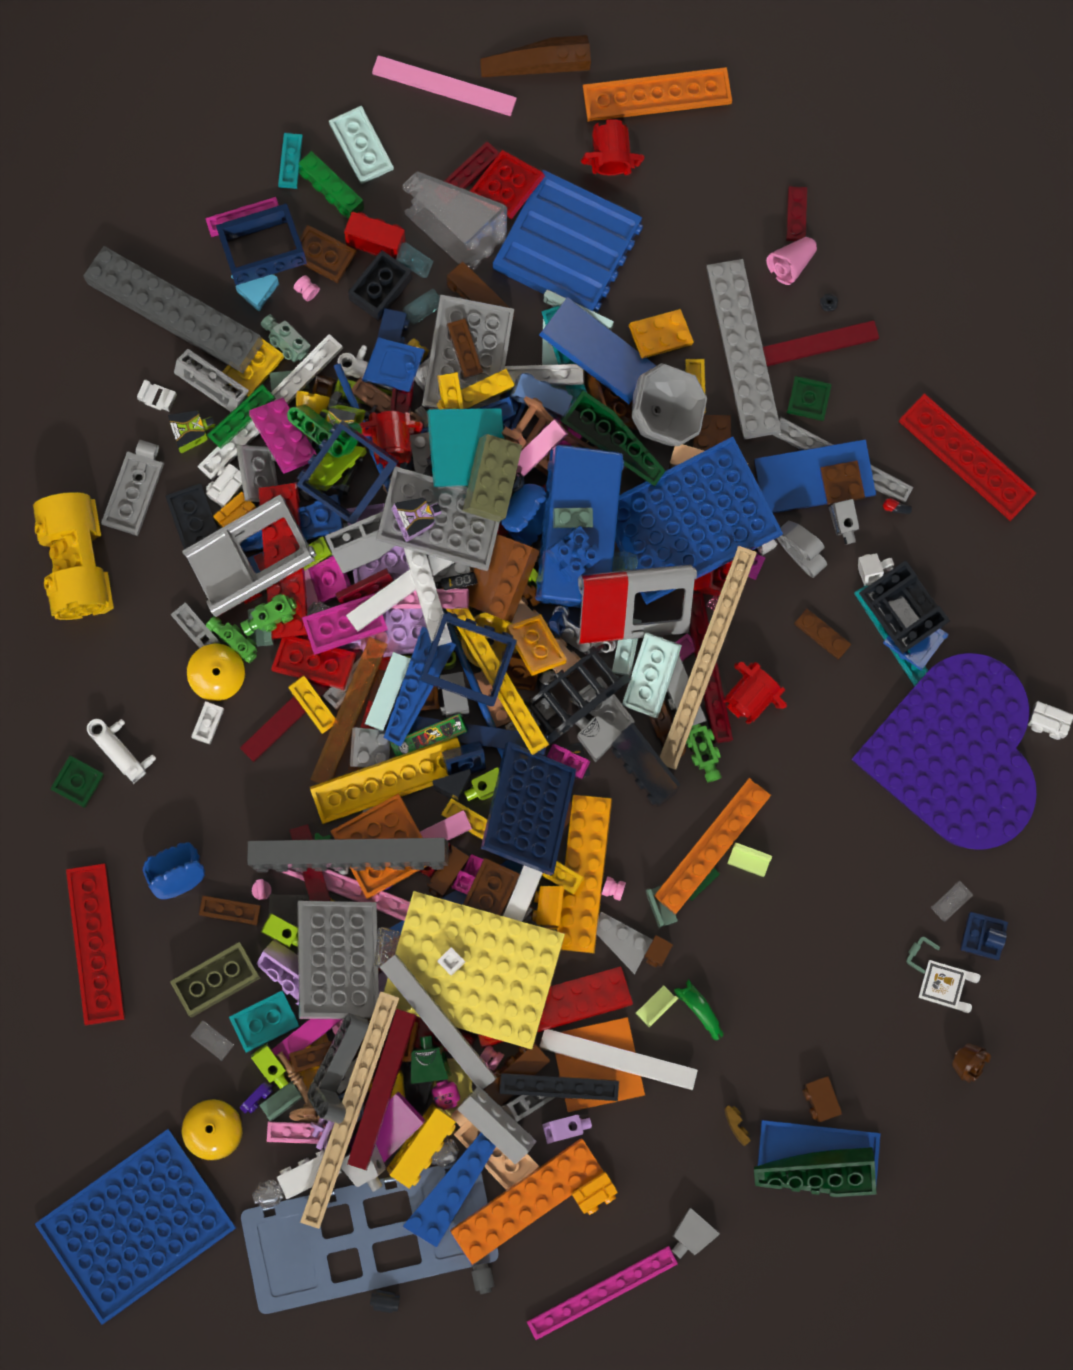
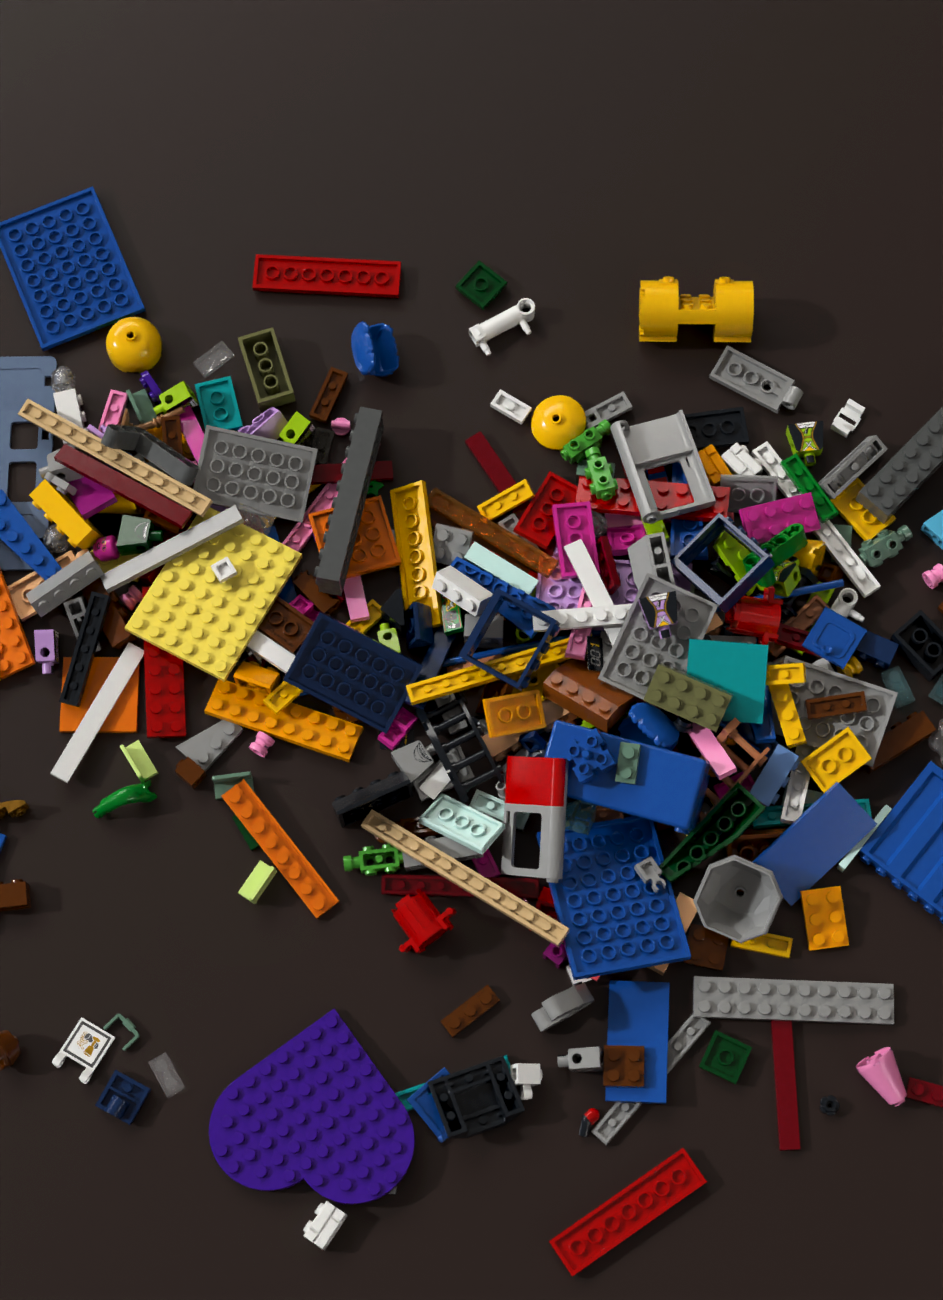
camera: 110 degrees right, 5 degrees down
(392, 1155) = (62, 486): none -> light grey plate
(422, 720) = (461, 590): none -> white brick
(515, 341) = (836, 759): none -> yellow plate
(614, 711) = (435, 782): none -> white sticker
(660, 490) = (650, 872): none -> light grey plate

